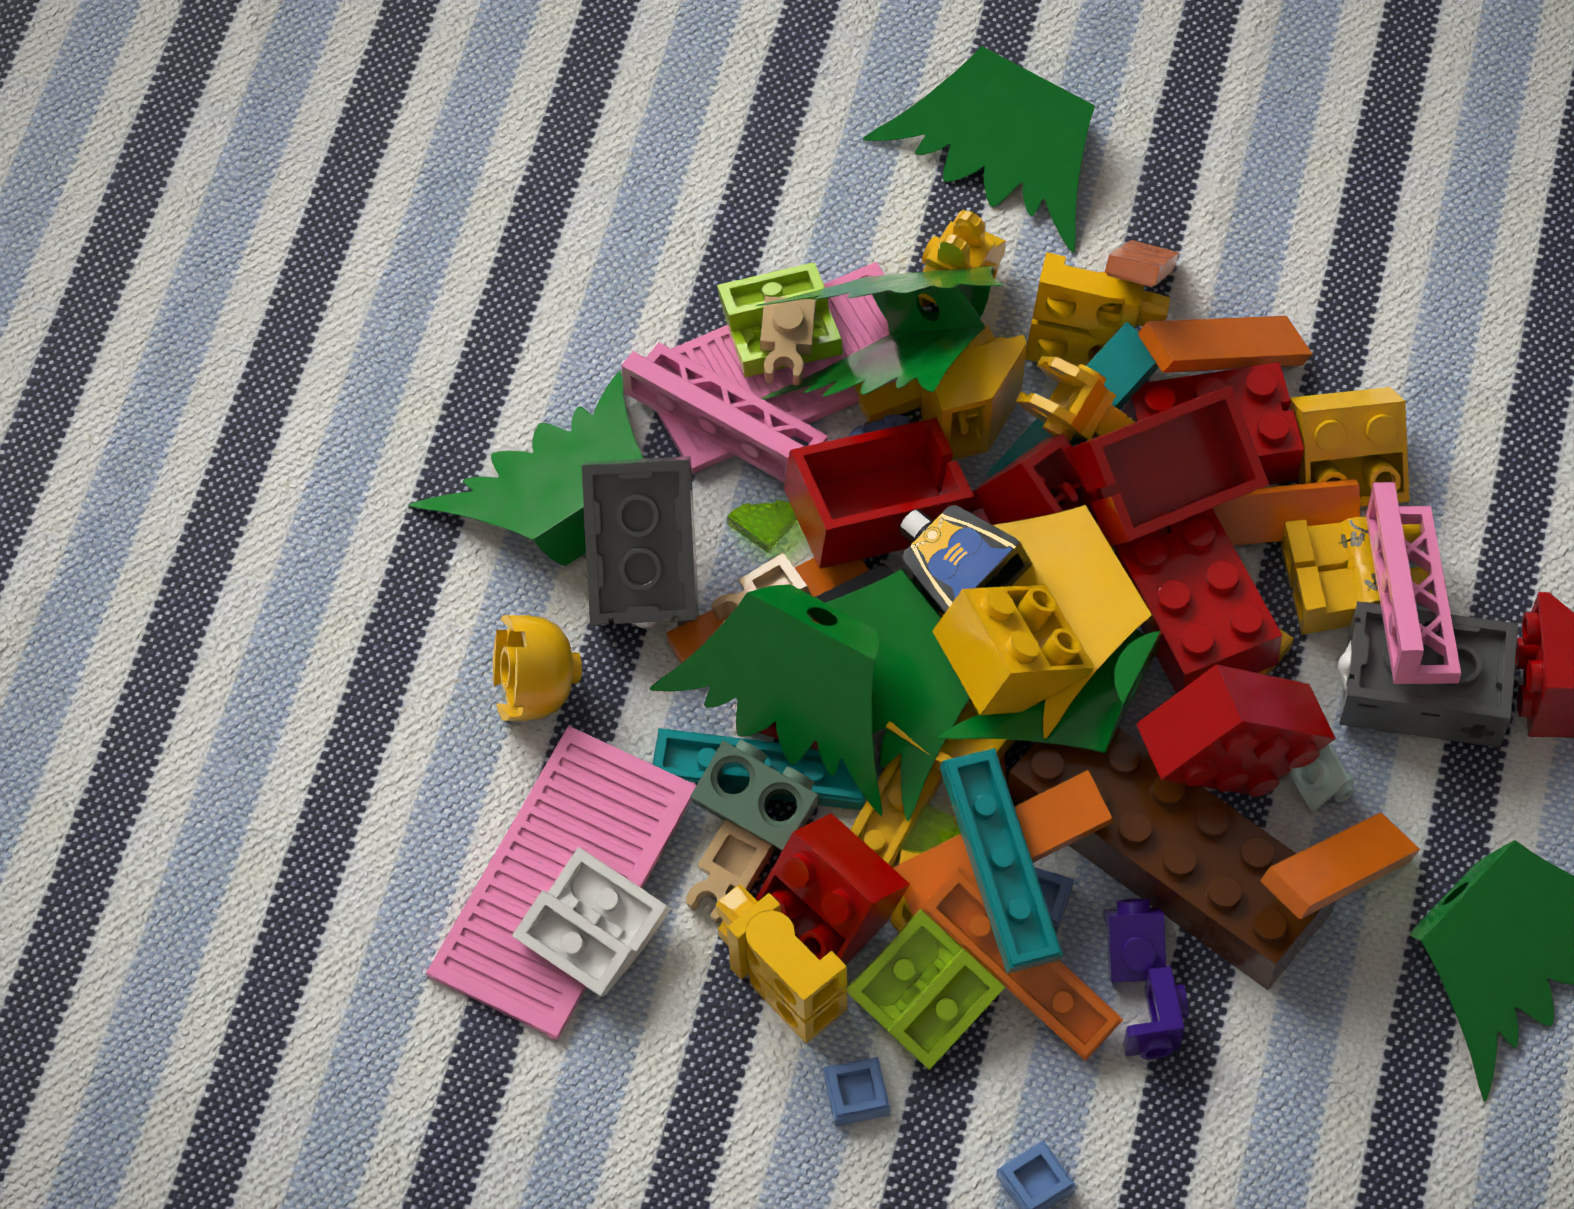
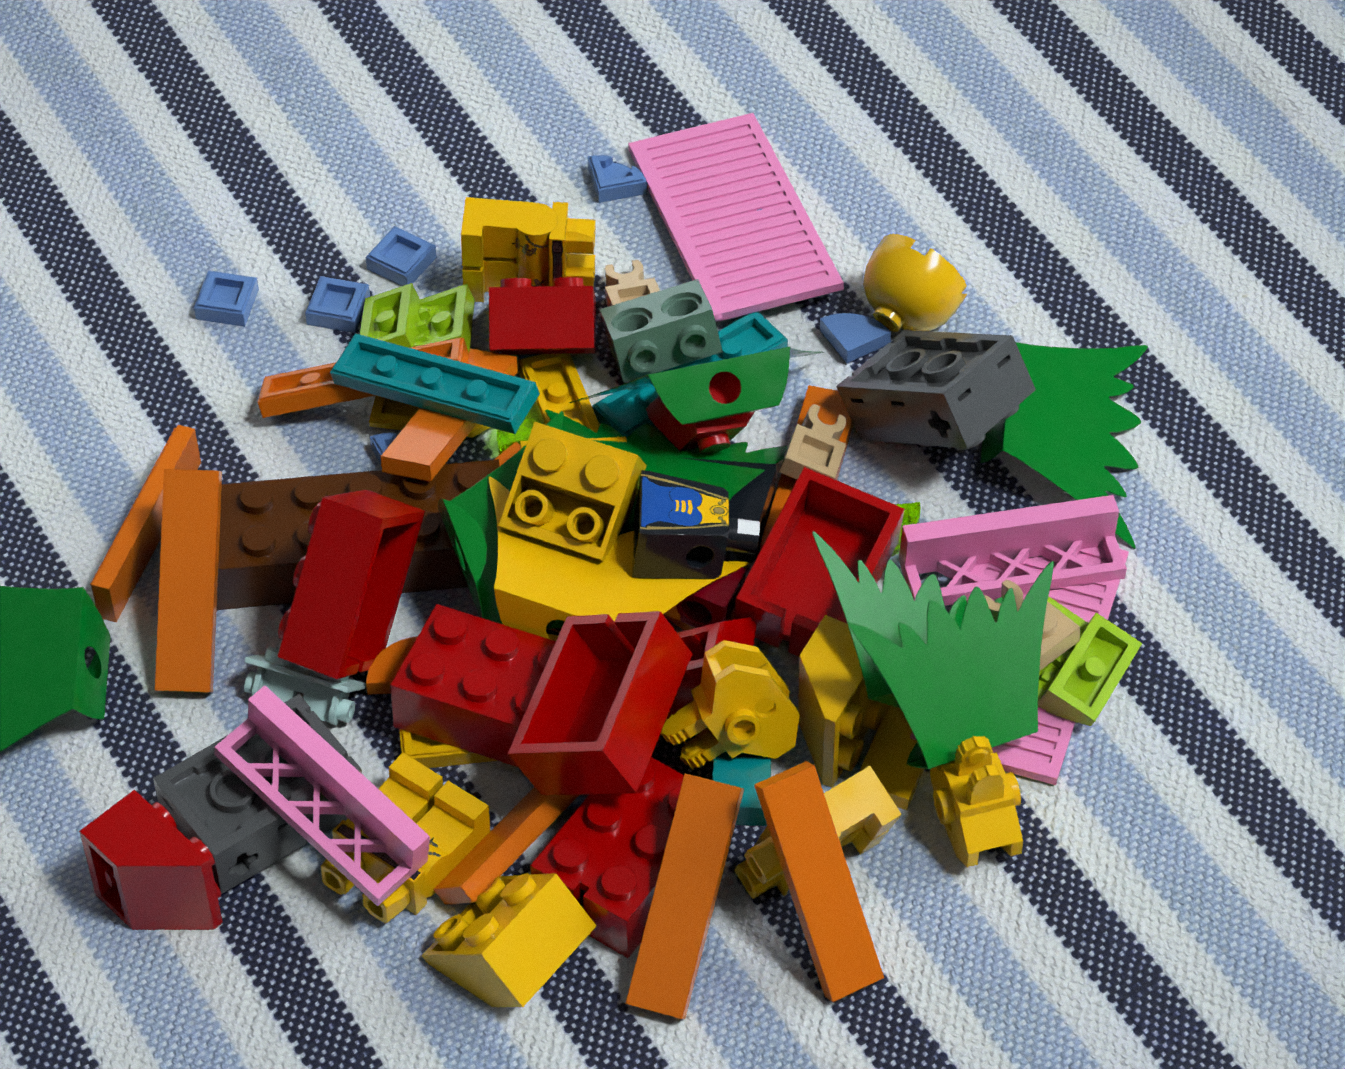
camera: 135 degrees right, 10 degrees down
(591, 922) = (679, 194): white slope -> none
(604, 693) = (854, 334): none -> medium blue tile
(608, 1015) = (614, 179): none -> medium blue tile
(953, 1089) = (337, 304): none -> medium blue tile
(1011, 126) = (1097, 971): green piece -> none
(1134, 940) = (301, 457): dark purple bracket -> none
(1166, 1007) = (235, 434): dark purple bracket -> none
(1303, 993) = (141, 528): none -> orange tile

